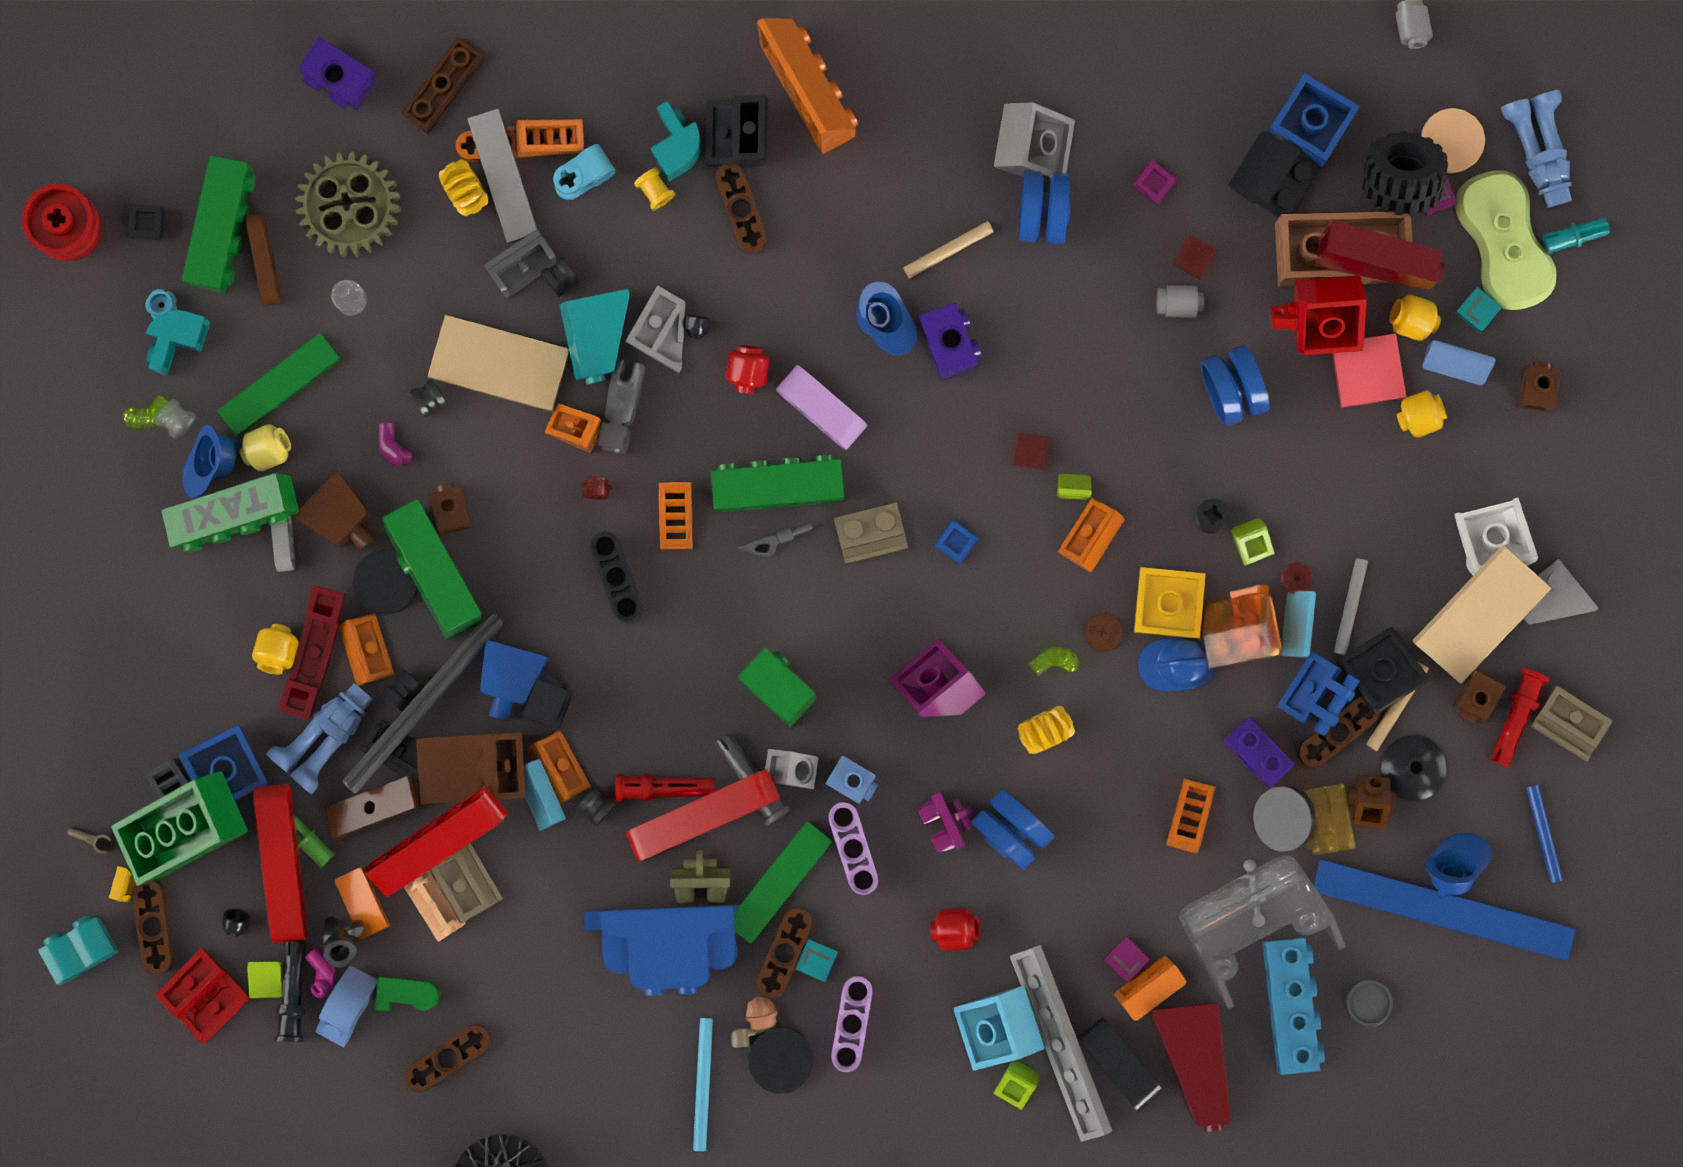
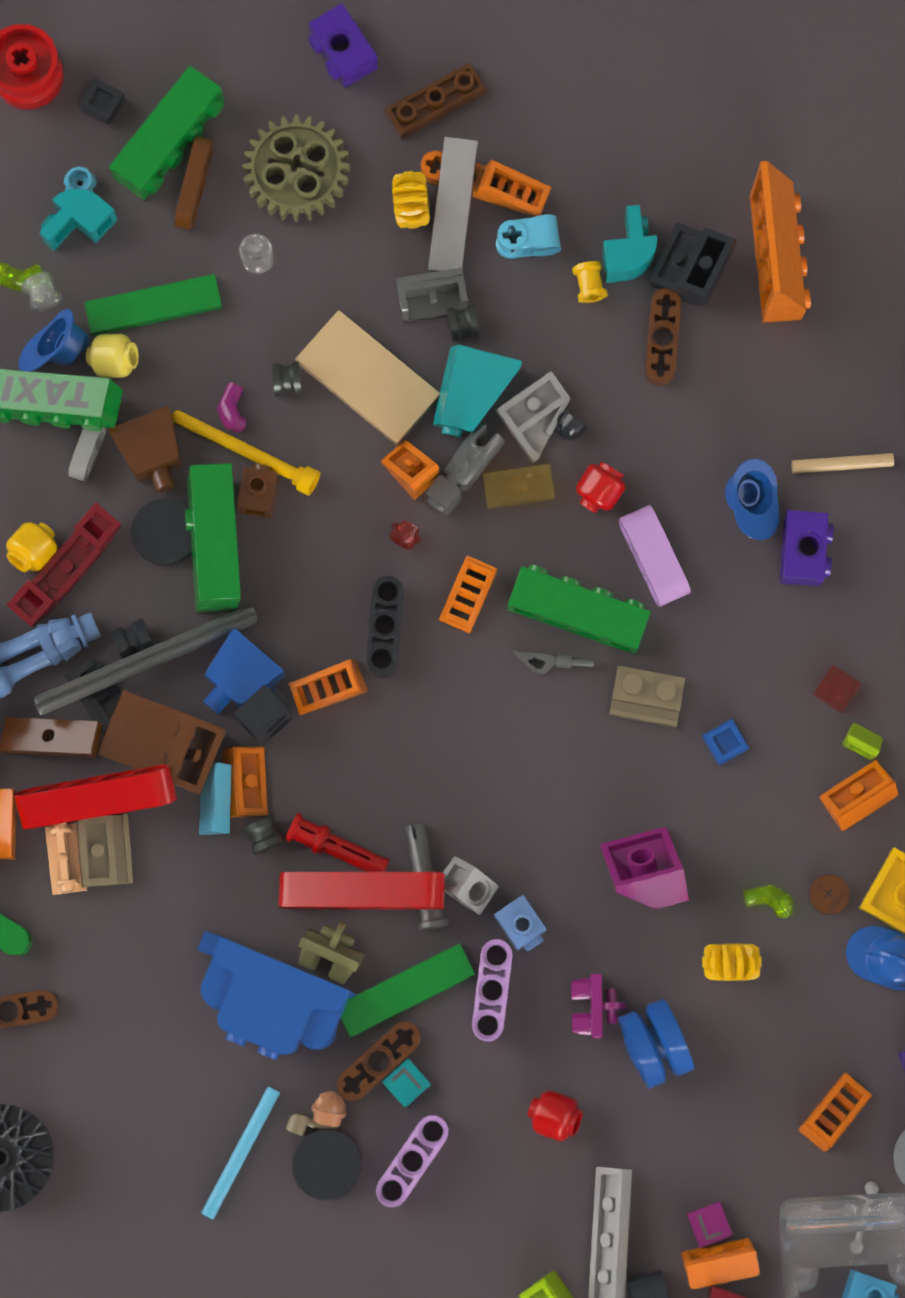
camera: 20 degrees right, 5 degrees down
(366, 649) = (116, 587): orange slope -> none
(483, 479) = (303, 478): none -> yellow piece
(610, 632) = (337, 670): none -> orange slope
(675, 400) = (518, 486): none -> clear yellow plate
(777, 686) = (491, 798): green brick -> none
(998, 1028) = (553, 1233): medium azure slope -> none

